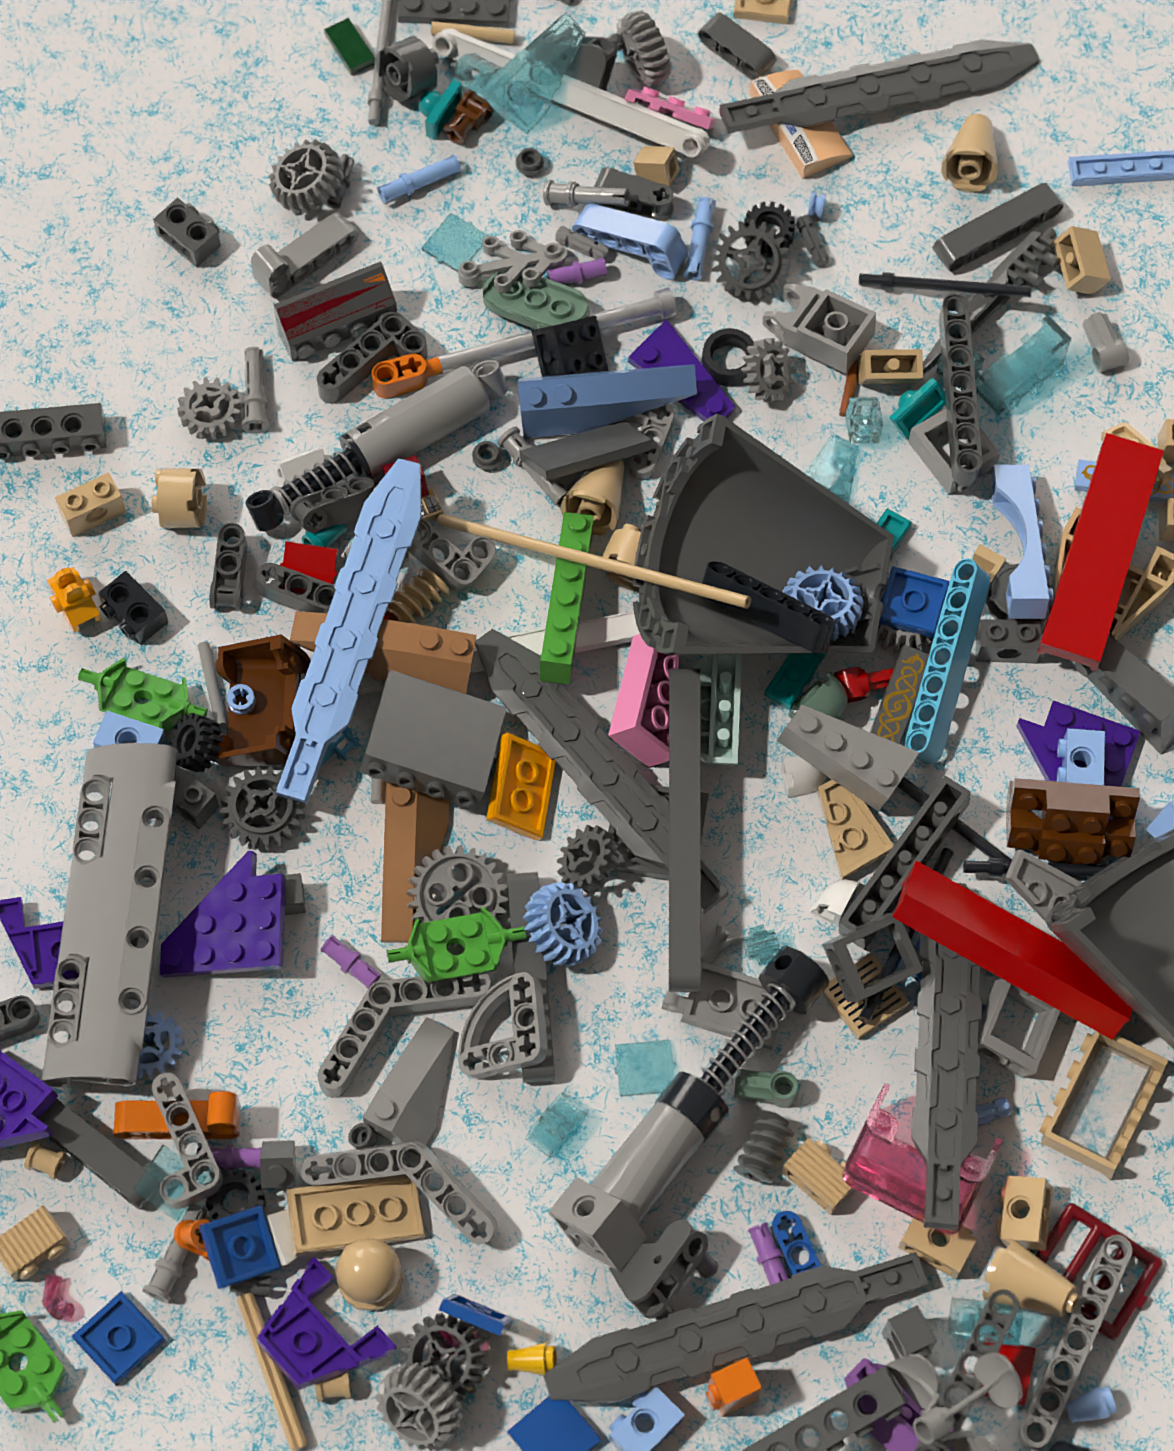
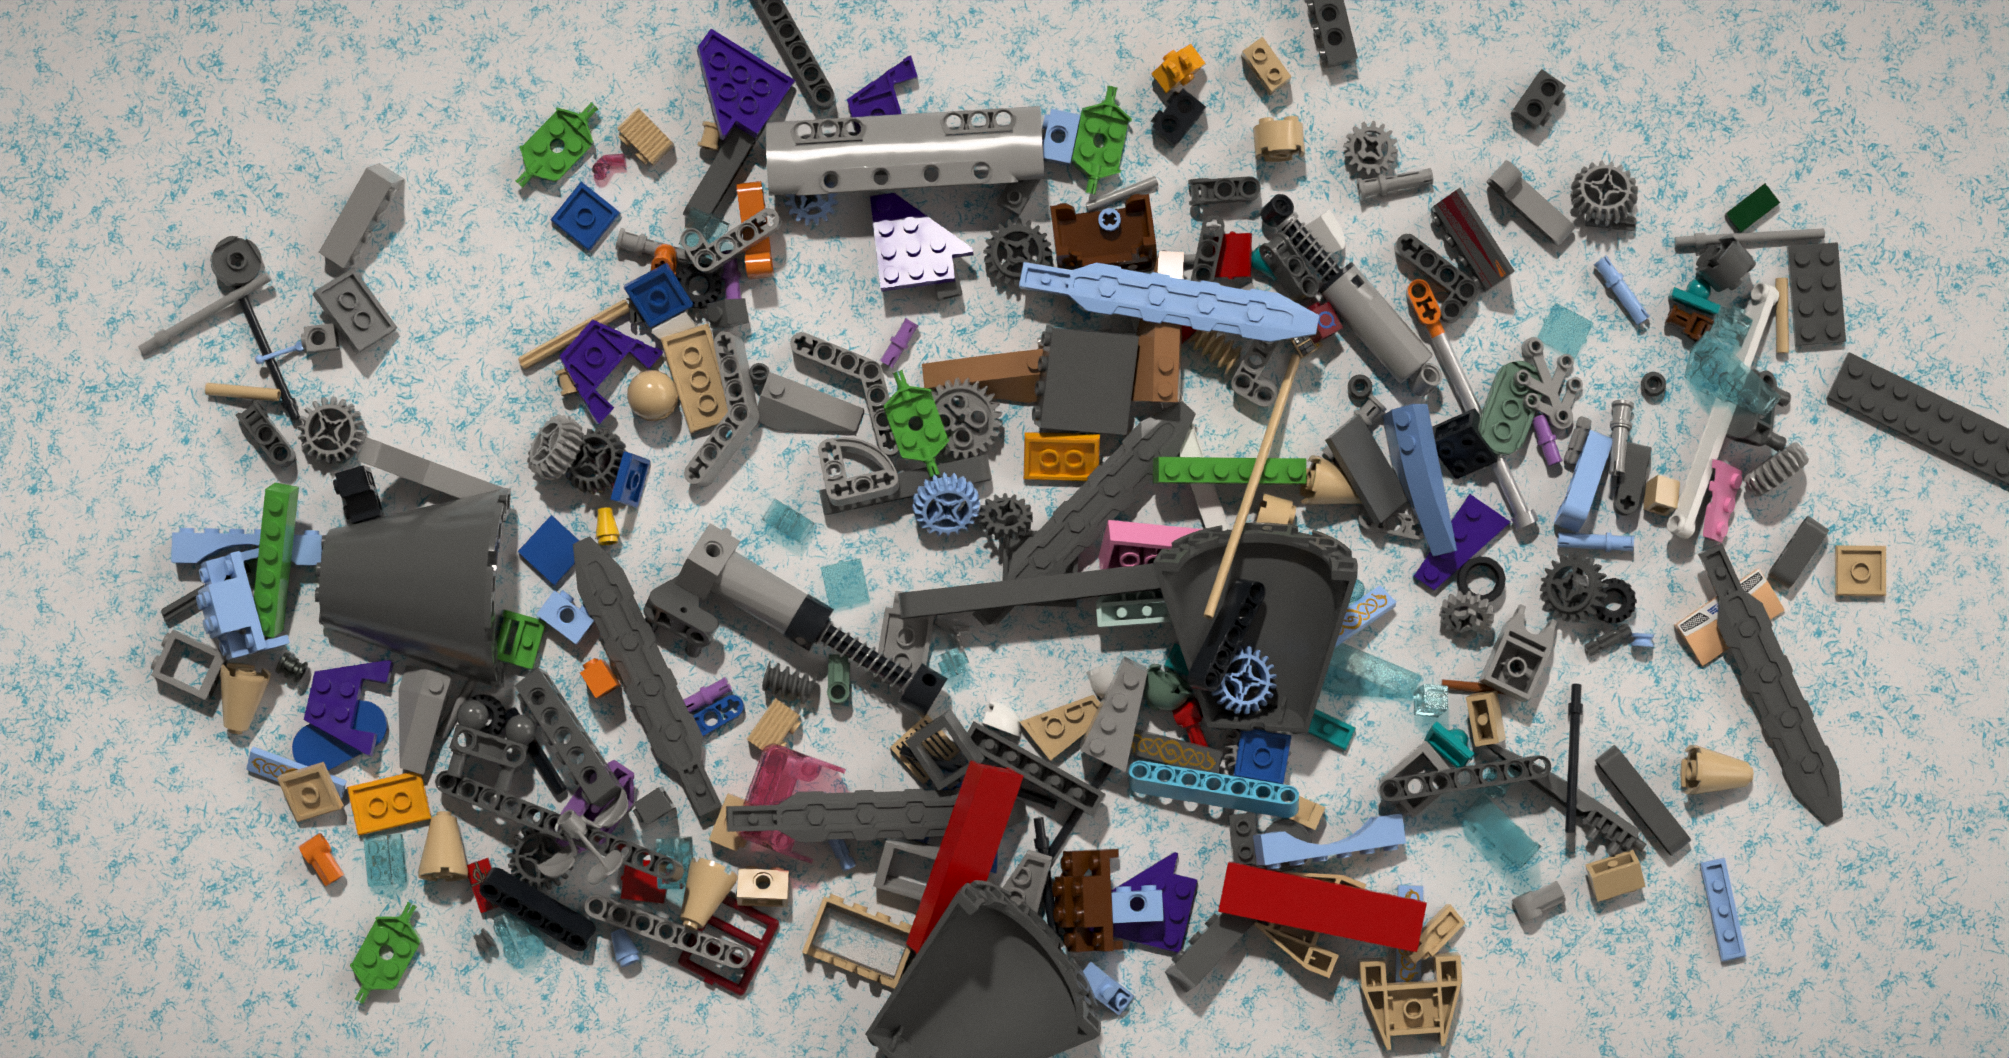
camera: 90 degrees right, 20 degrees up
(196, 742) = (1062, 190): black tyre -> none

